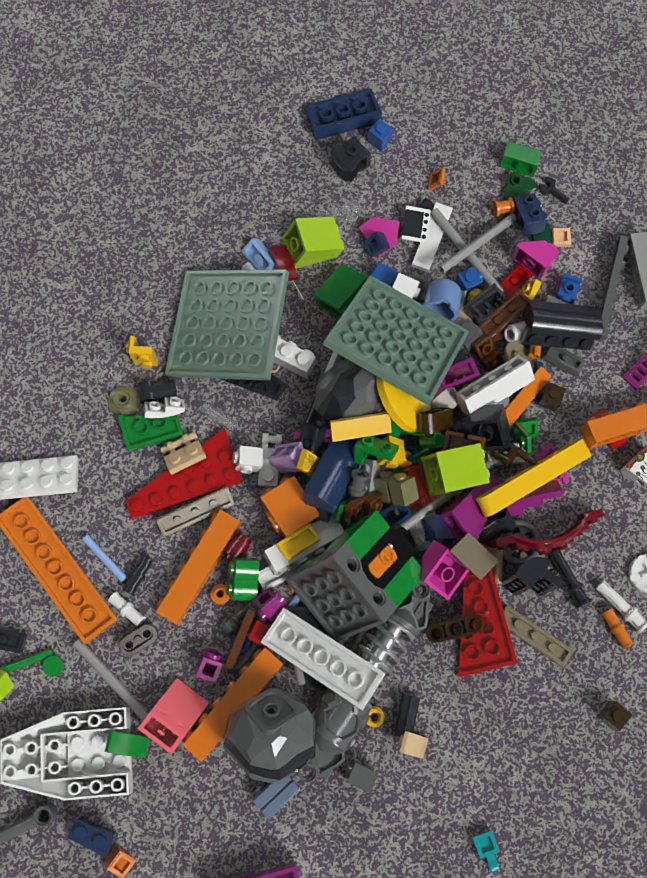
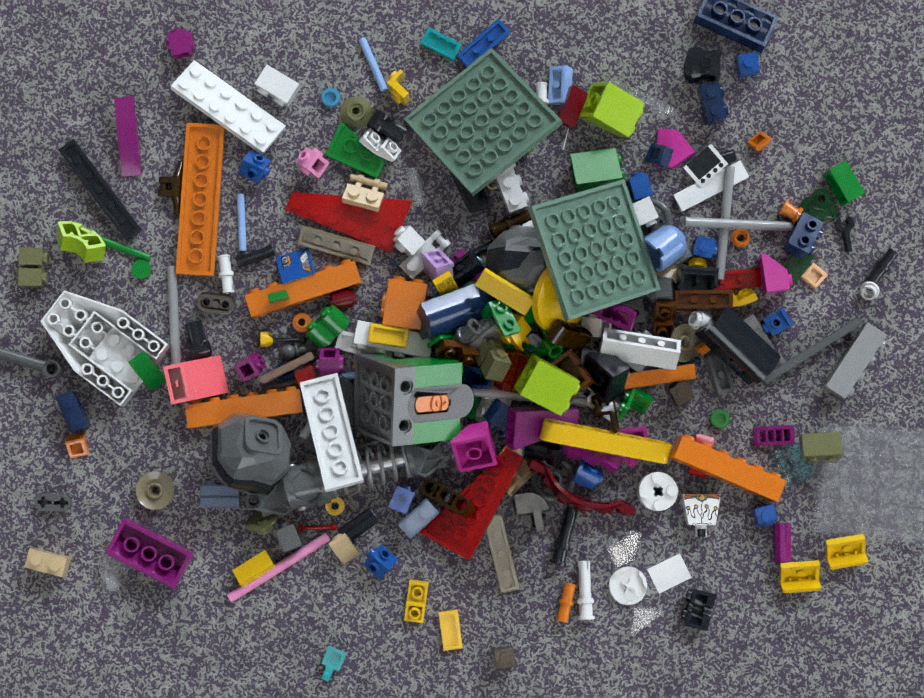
camera: 40 degrees right, 10 degrees up
(21, 588) = (176, 183): none -> dark brown piece
(44, 431) = (277, 86): none -> white brick
(78, 506) = (254, 167): none -> blue brick
(94, 406) = (330, 97): none -> dark azure tile
(106, 355) = (373, 65): none -> light blue bar
(121, 464) = (312, 162): none -> bright pink brick
(146, 299) = (440, 44): none -> teal plate
(152, 684) = (199, 344): none -> black piece
(176, 554) = (295, 265): none -> blue sticker
(178, 266) = (487, 39): none -> blue tile
(184, 588) = (278, 296): none -> green tile
(204, 631) = (267, 339): none -> hinge
(215, 851) = (145, 493): none -> dark tan dish
(310, 384) = (506, 222): none -> dark brown pin
(330, 787) = (261, 524): none -> olive piece
(355, 830) = (253, 568): none -> yellow tile
(363, 759) = (301, 527): none -> red hinge
(374, 811) = (280, 566): none -> bright pink piece
(380, 179) = (712, 103): none -> dark blue brick
(421, 662) = (402, 498): none -> blue brick
(448, 666) = (418, 518): none -> sand blue brick
(450, 728) = (380, 561): none -> blue brick
(474, 556) = (502, 458): dark tan slope -> none
(486, 249) = (744, 233): none -> orange plate
(506, 735) = (416, 601): none -> yellow slope
(543, 516) = (588, 475): none -> blue brick
(552, 733) = (450, 630): none -> yellow tile
(593, 392) = (719, 418): none -> green tile
(596, 490) = (658, 502): none -> white brick
(600, 191) = (882, 266): none -> black pin
(611, 217) = (869, 295): none -> white plate
(621, 548) = (625, 549): none -> clear slope

